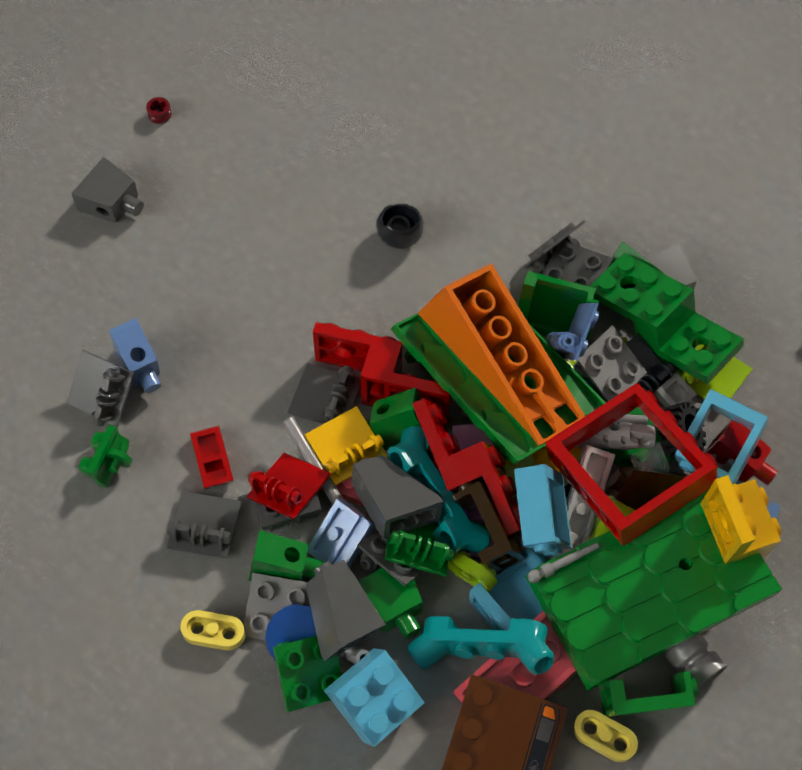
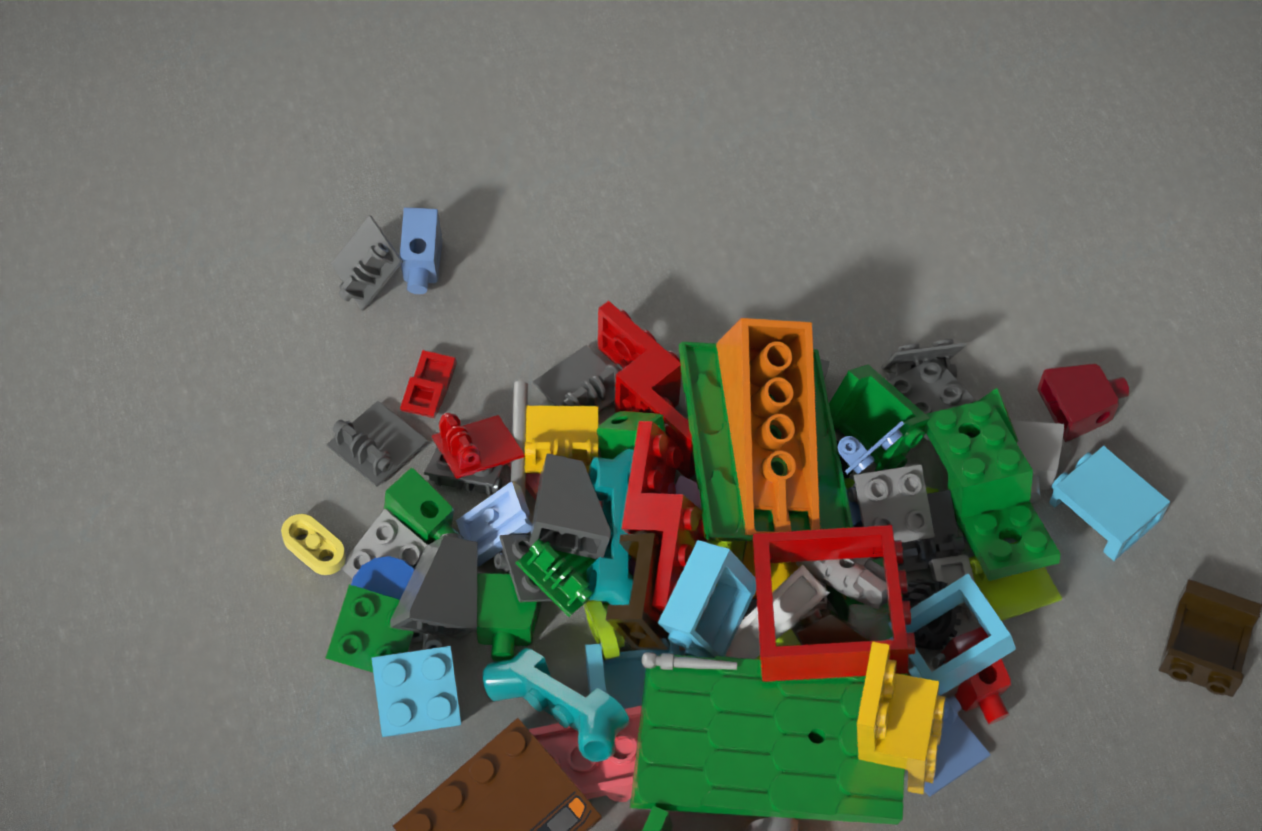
camera: 30 degrees right, 5 degrees down
(107, 193) = (503, 87): dark grey torso -> none
(108, 457) = (329, 330): green hips -> none
(155, 116) = (611, 27): dark red bush -> none
(400, 225) = (773, 259): black hair -> none
(671, 217) = (1081, 397): none -> dark red torso
(739, 280) = (1110, 500): none -> medium azure panel

